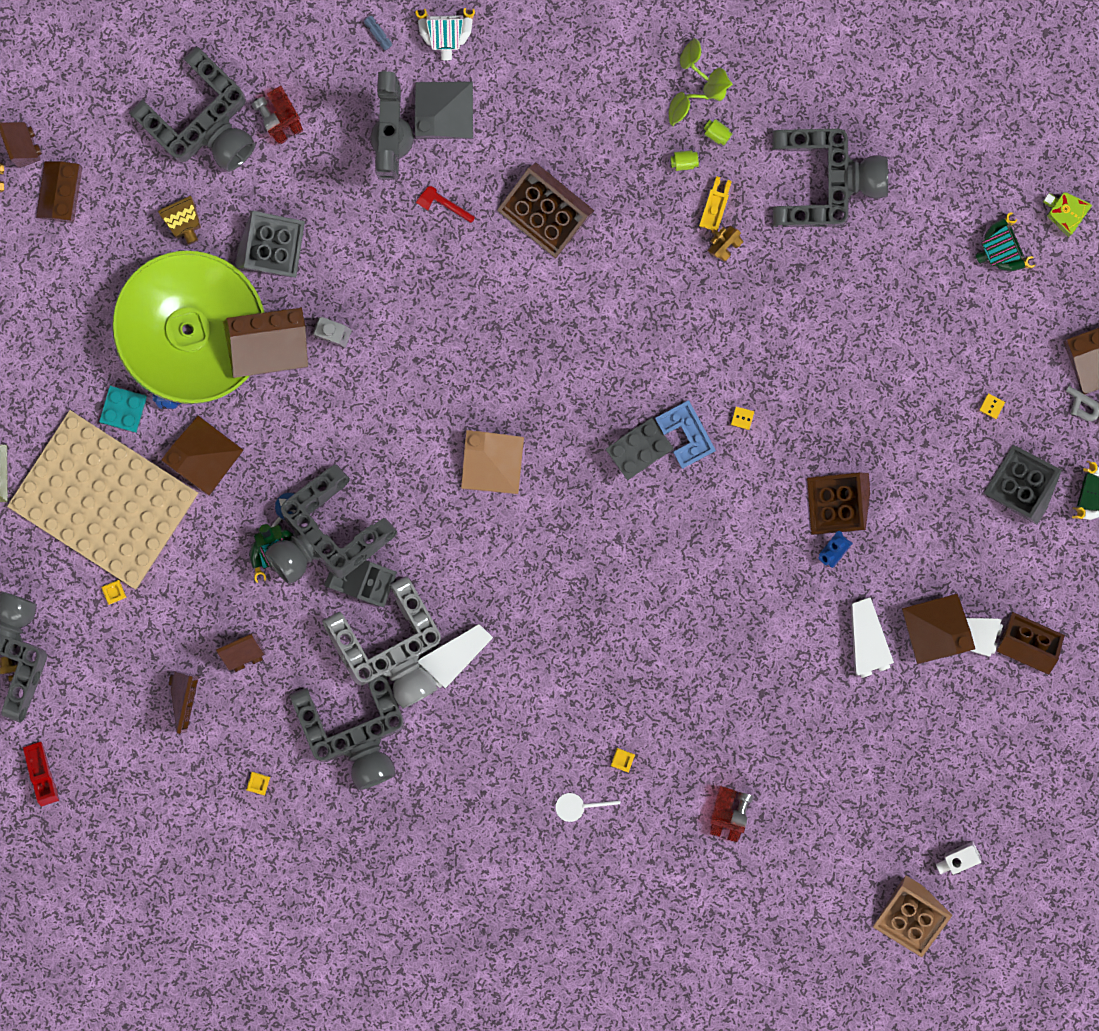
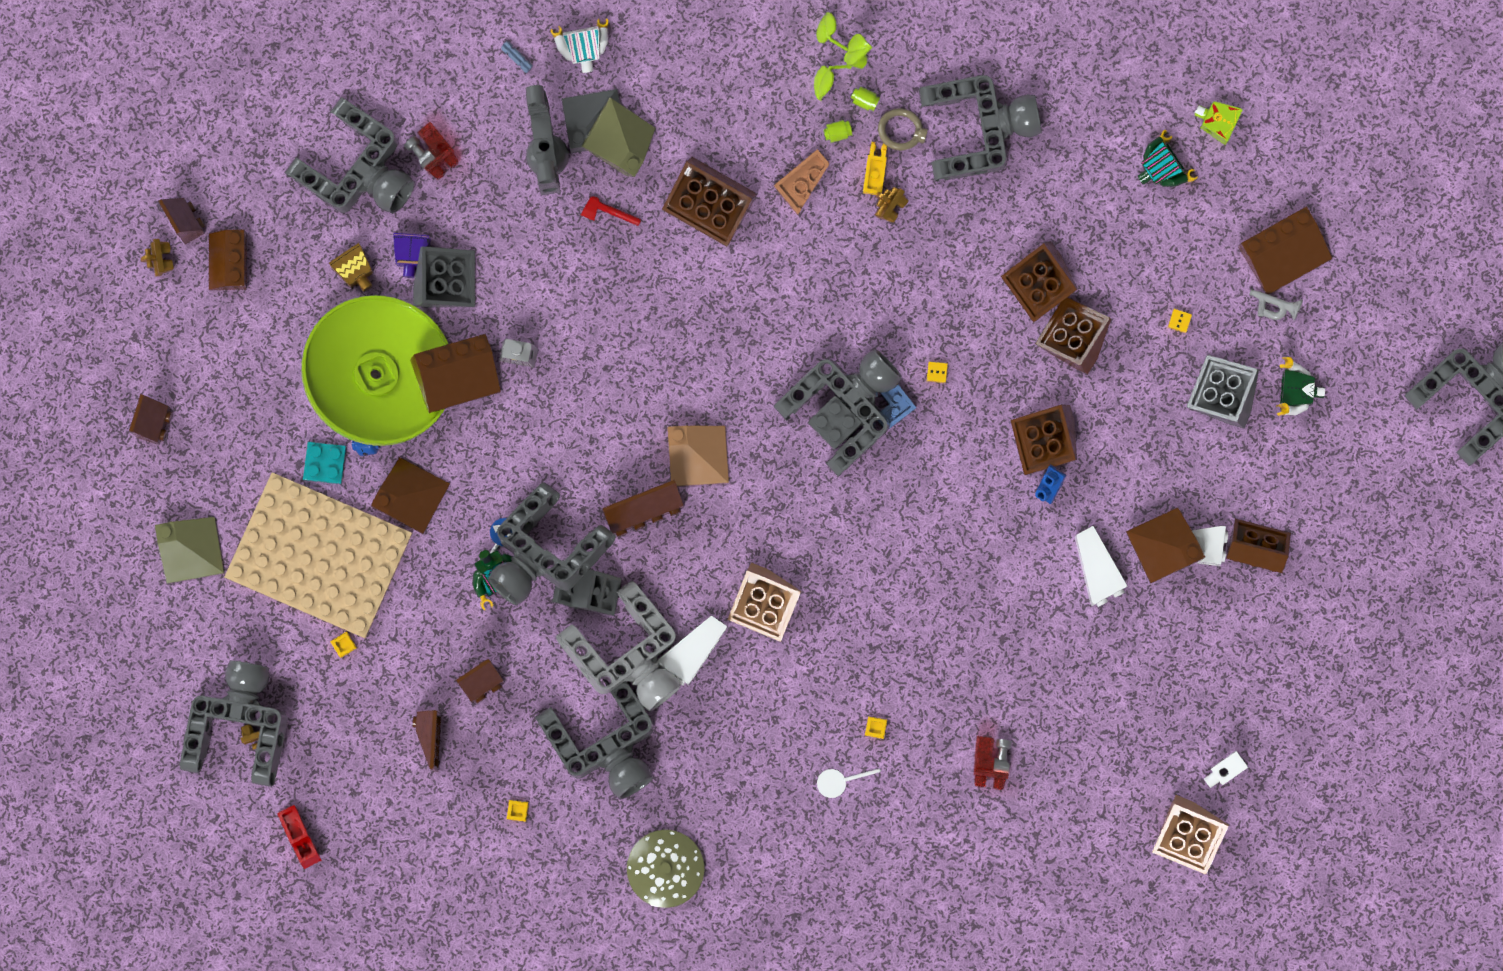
camera: 10 degrees left, 5 degrees down
(238, 211) = (407, 251): none -> dark purple torso
(393, 864) = (665, 868): none -> olive dish
(429, 507) = (642, 508): none -> reddish brown slope
(466, 132) = (619, 138): none -> olive slope
(533, 619) = (764, 602): none -> medium nougat slope
(640, 204) = (801, 181): none -> nougat wing
(663, 424) = (874, 376): none -> dark grey piece
(765, 178) = (919, 135): none -> dark tan piece
(861, 344) = (1040, 281): none -> reddish brown slope
(885, 403) = (1075, 335): none -> reddish brown slope

